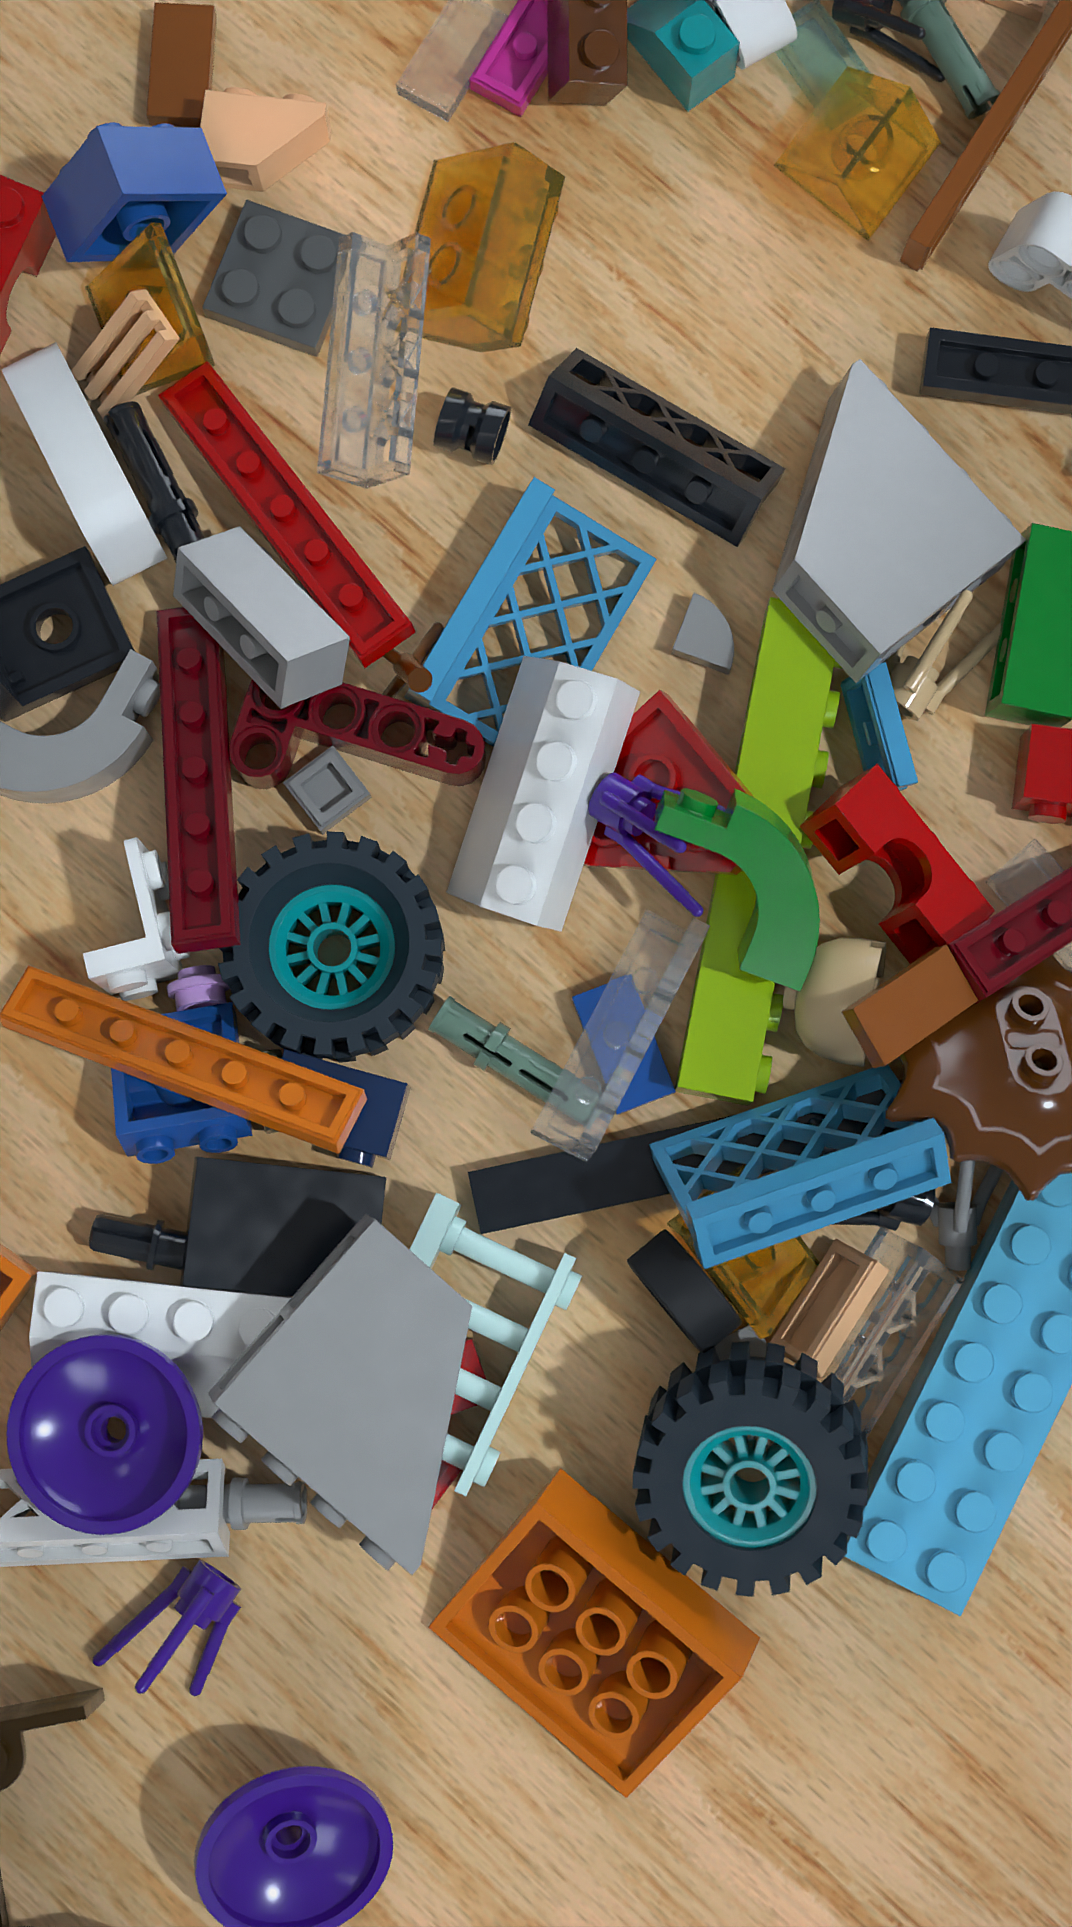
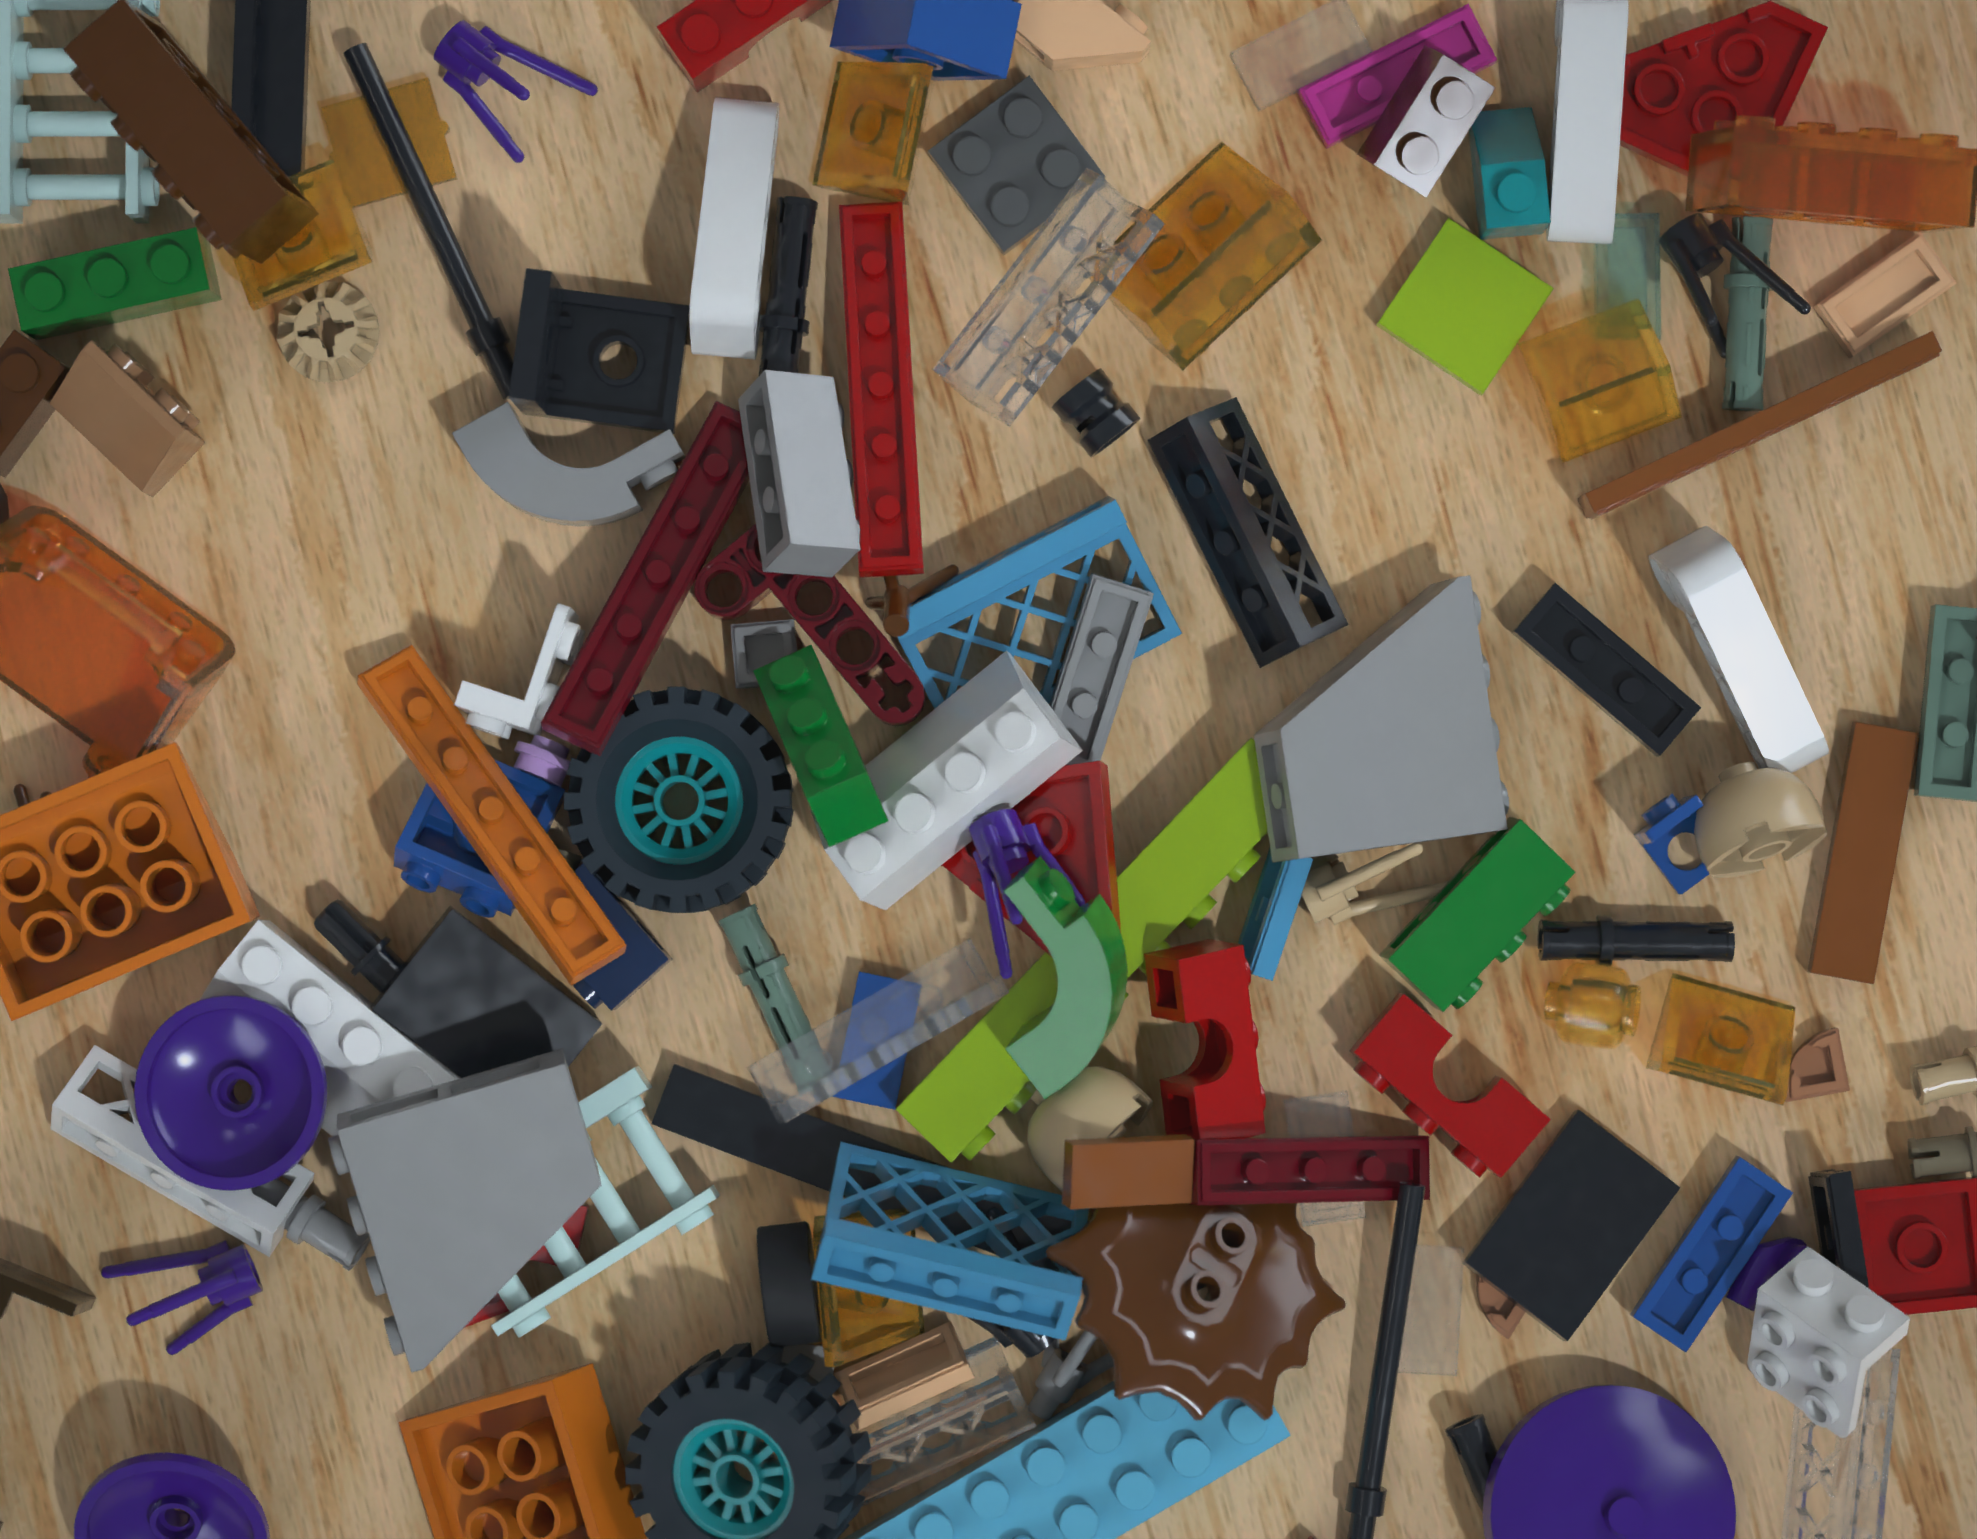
camera: 30 degrees right, 5 degrees up
(119, 345) = (797, 160): light nougat tile -> none
(422, 822) = (820, 746): none -> green brick
(603, 613) = (1099, 662): none -> light grey tile
(705, 636) = (1180, 729): light grey tile -> none
(712, 166) = (1464, 306): none -> lime tile

